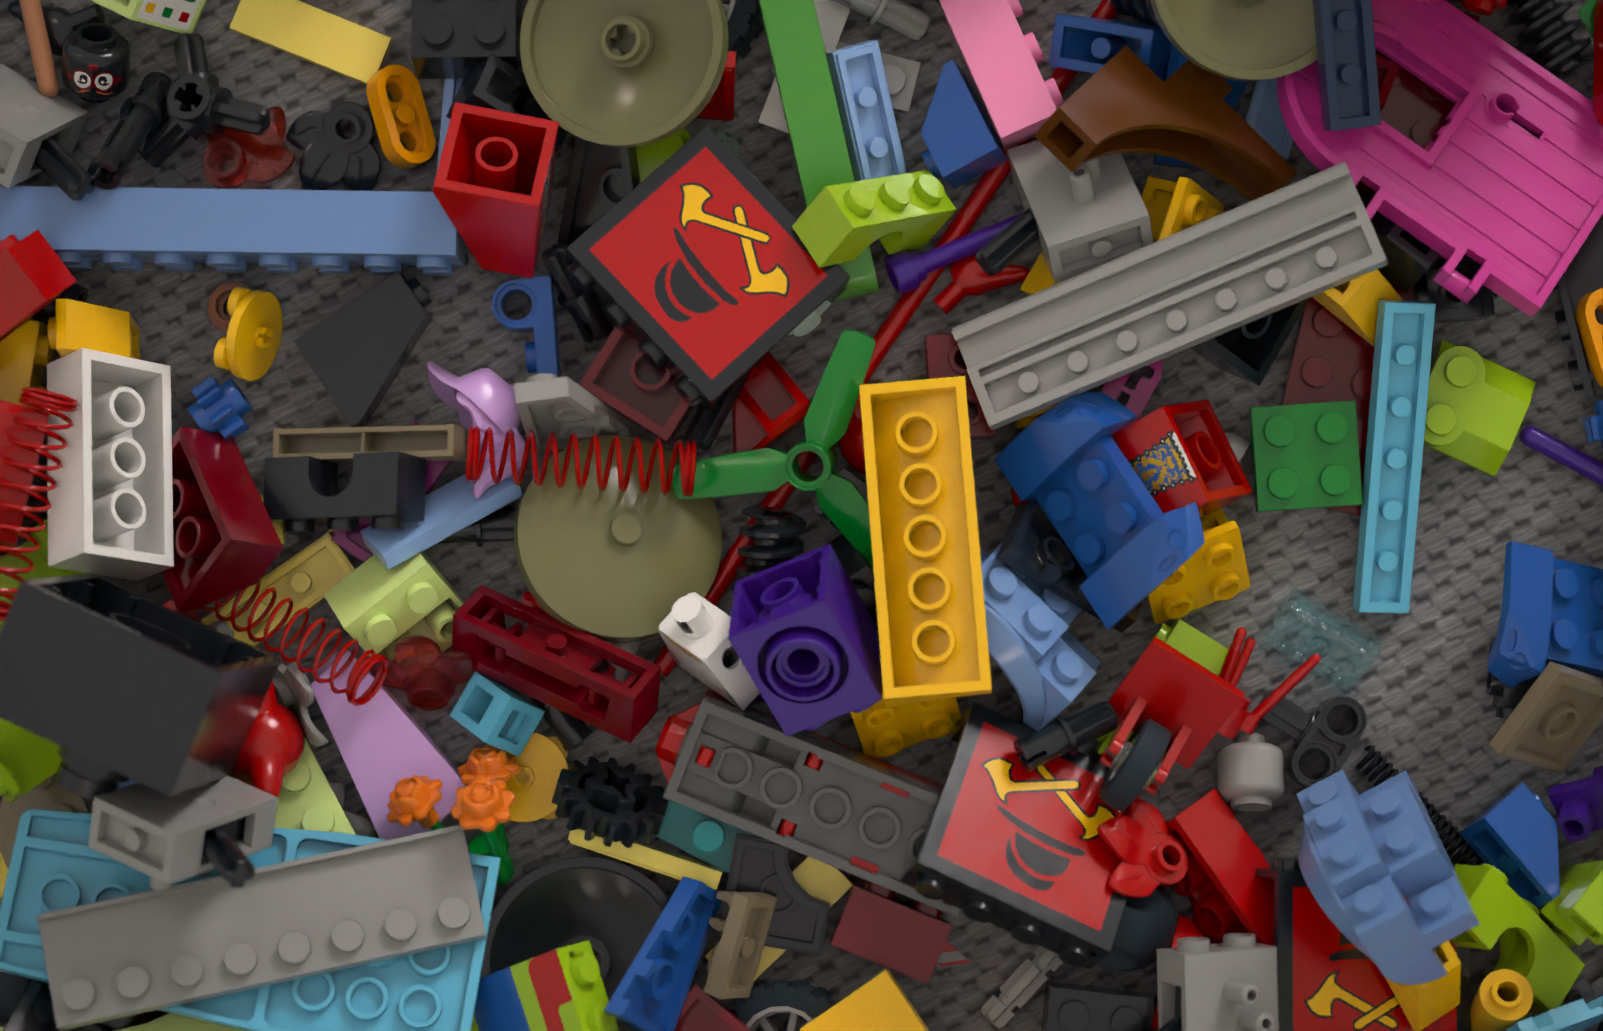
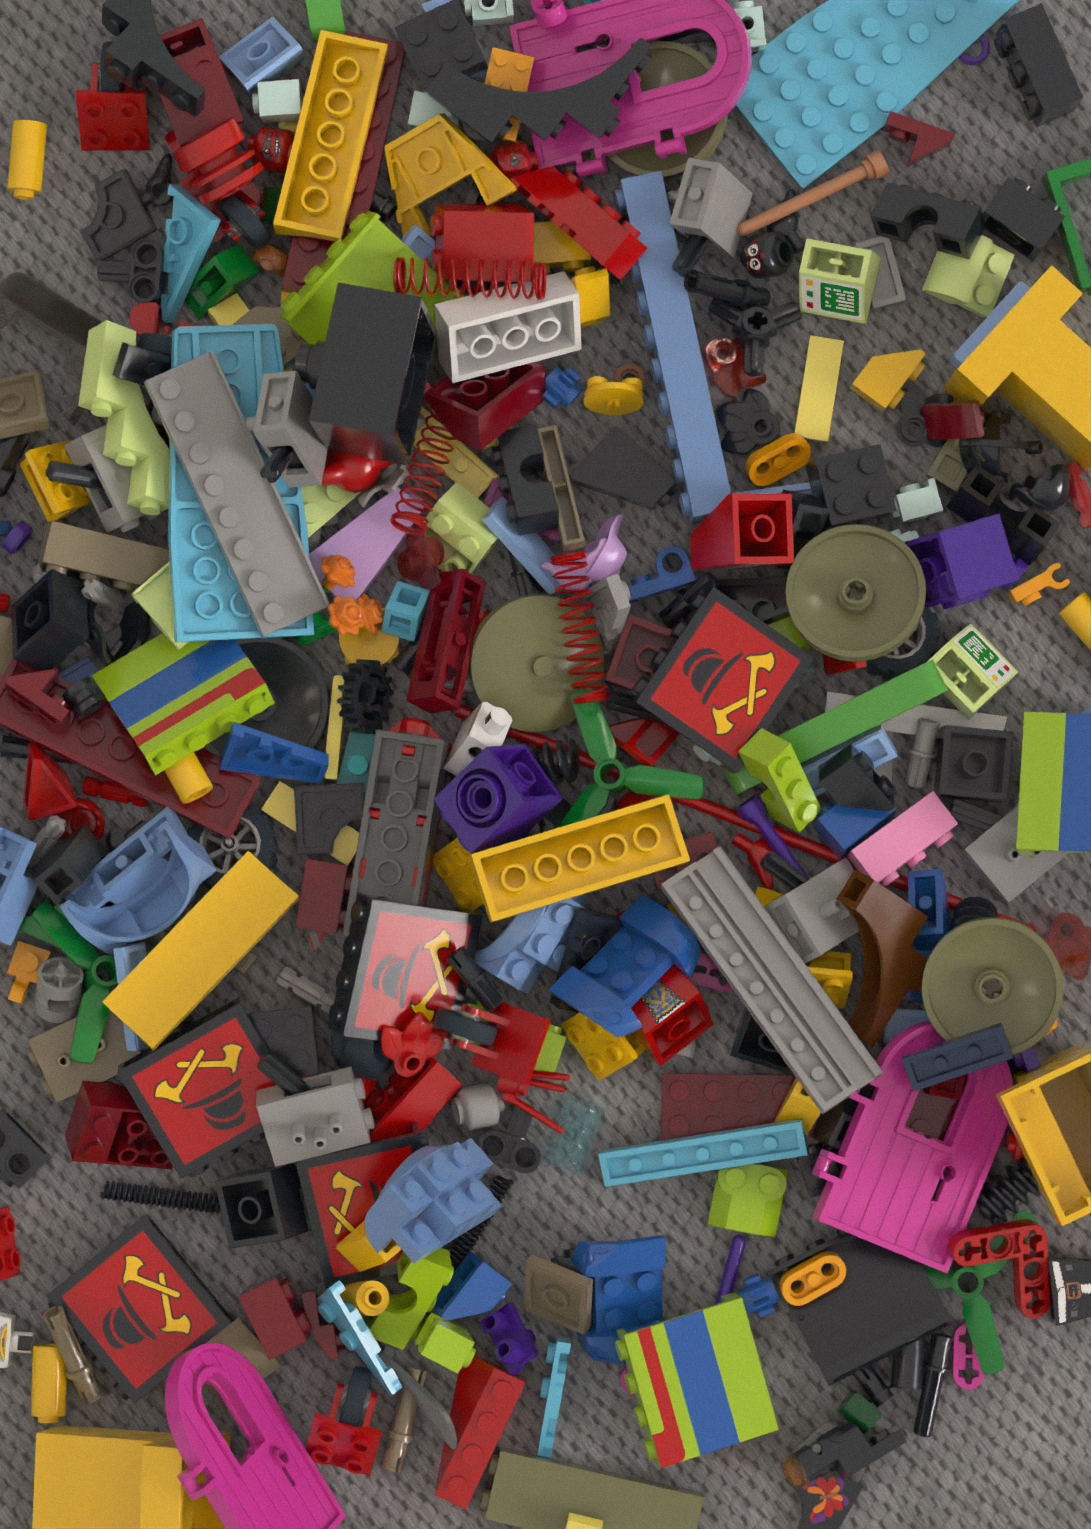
camera: 65 degrees right, 0 degrees up
(738, 953) = (293, 801): dark tan plate -> none
(902, 110) = (854, 782): none -> black slope
(1305, 456) = (691, 1095): green plate -> none

